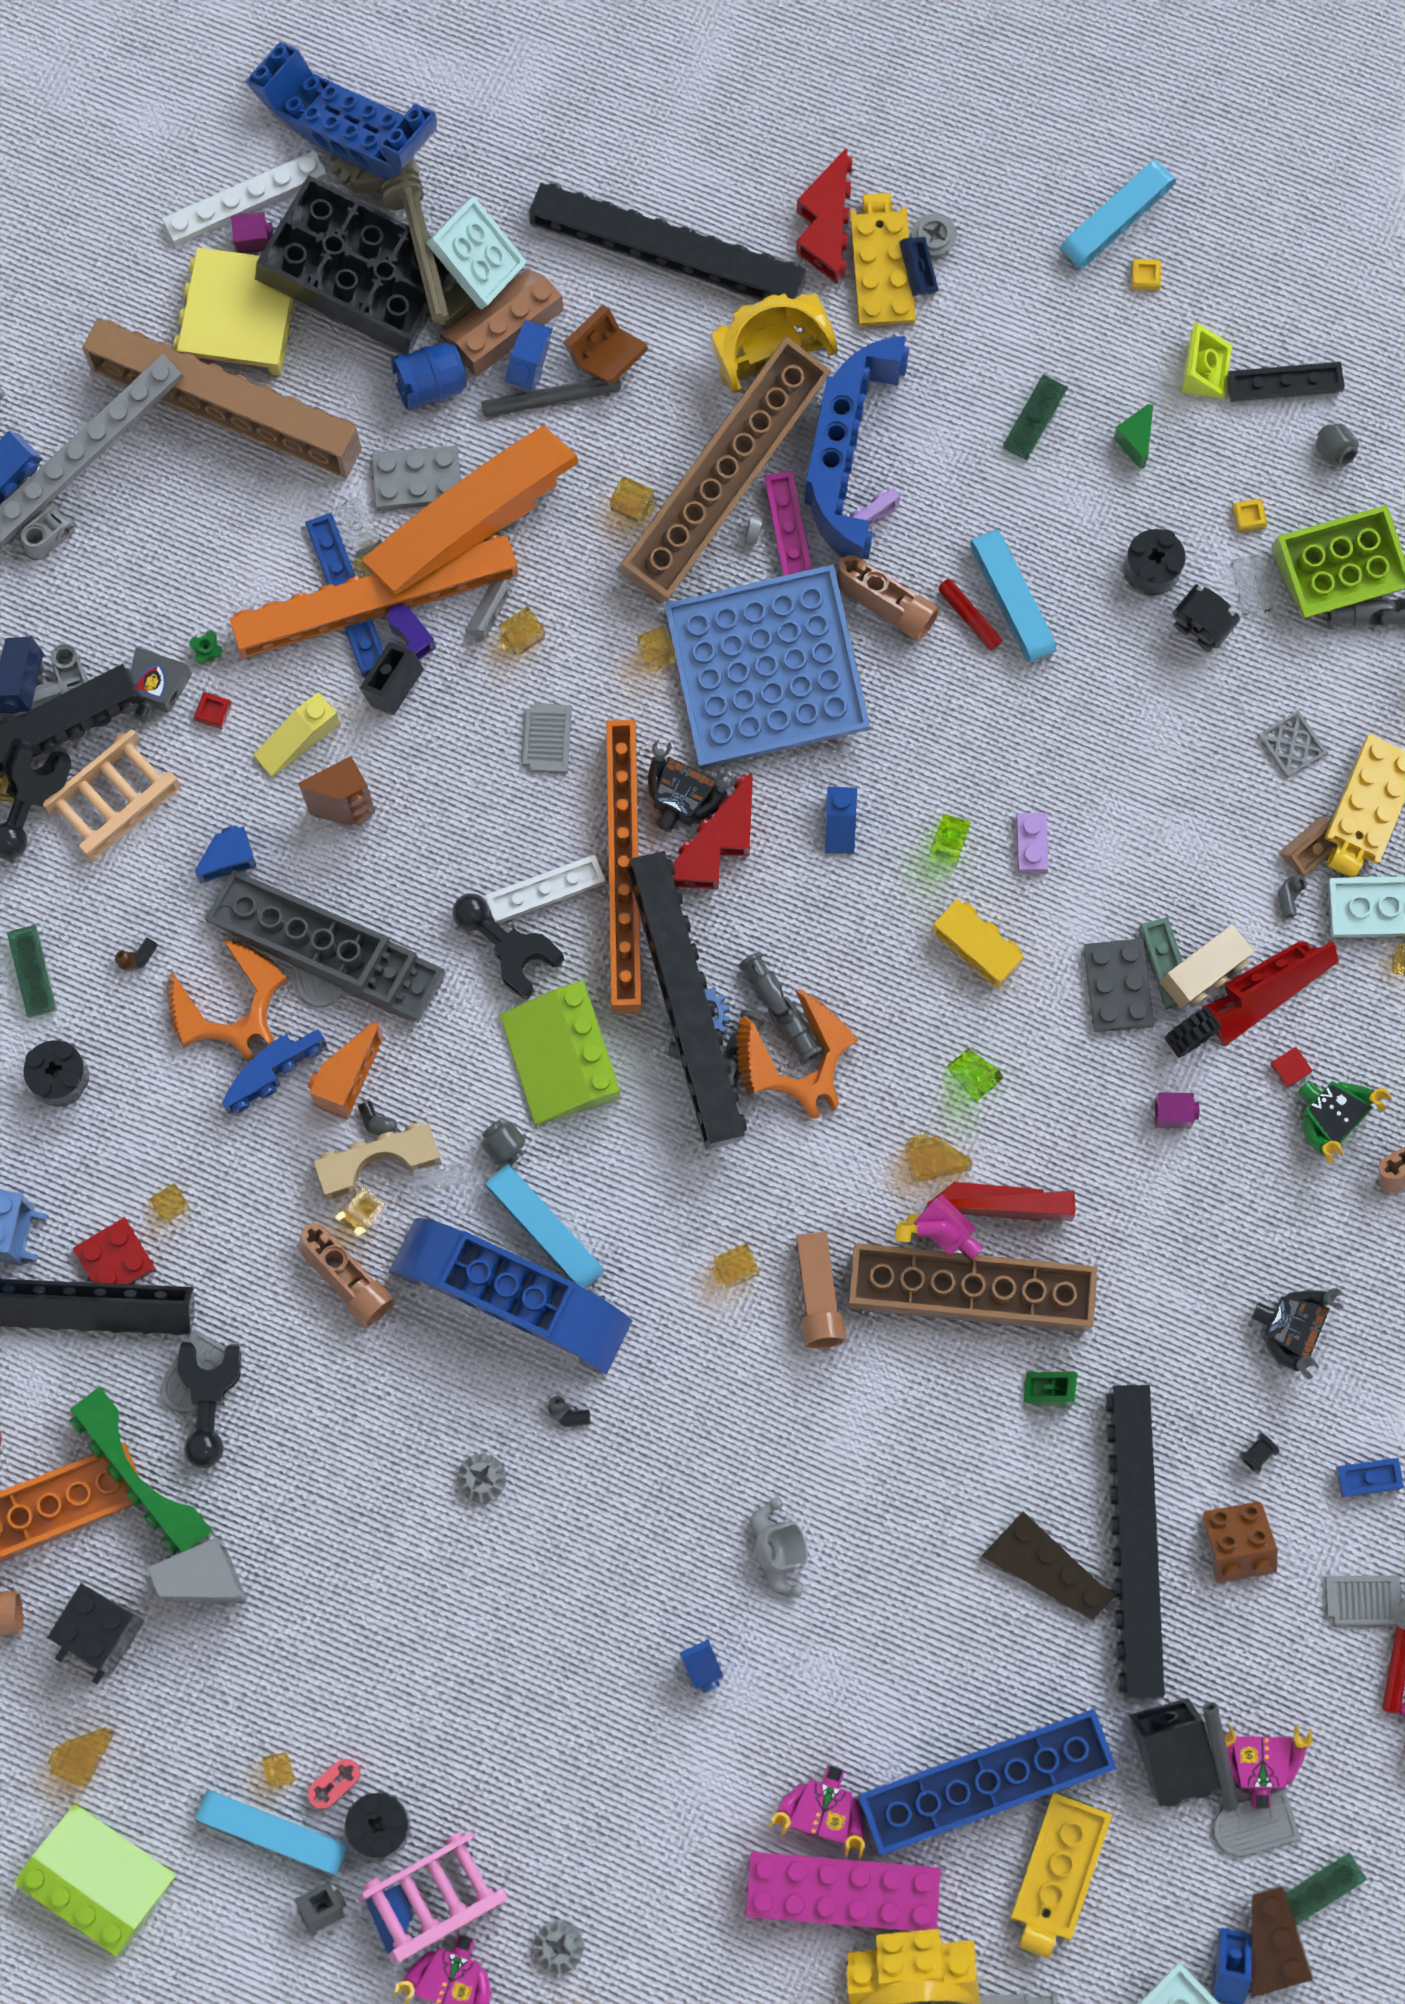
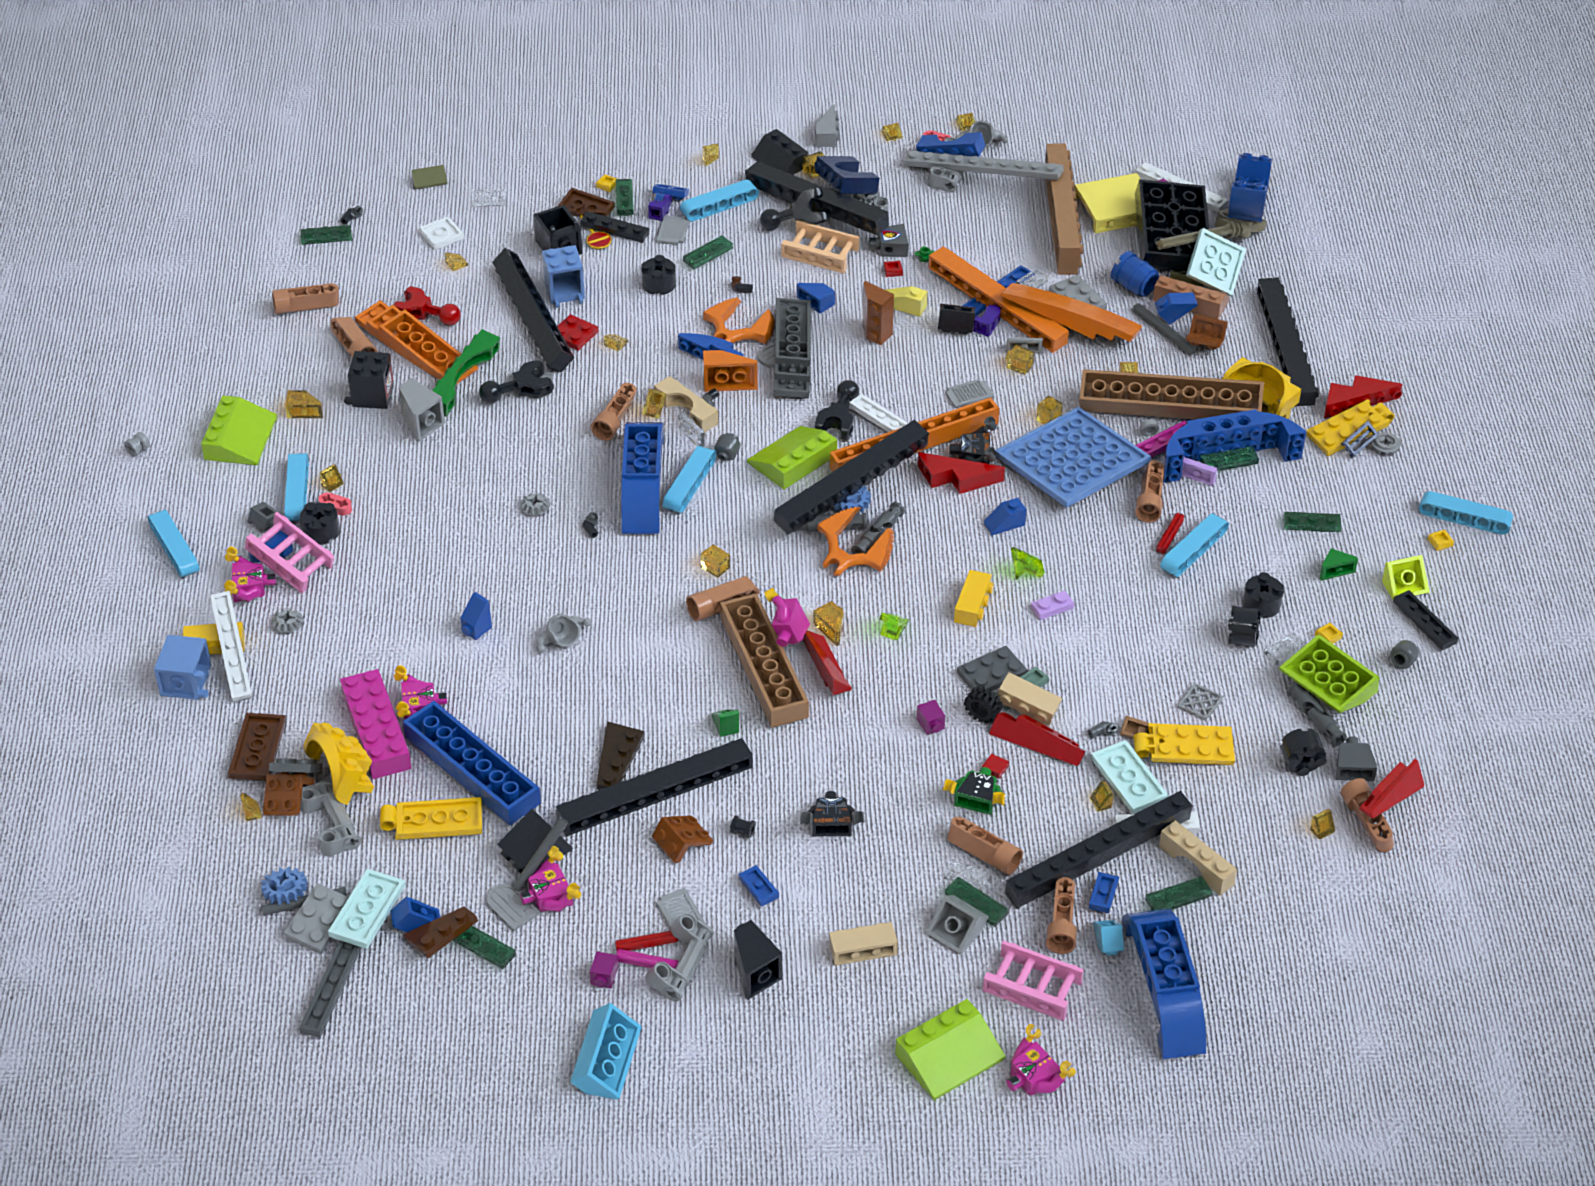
camera: 65 degrees right, 30 degrees down
(868, 457) = (1231, 458): none -> clear green plate

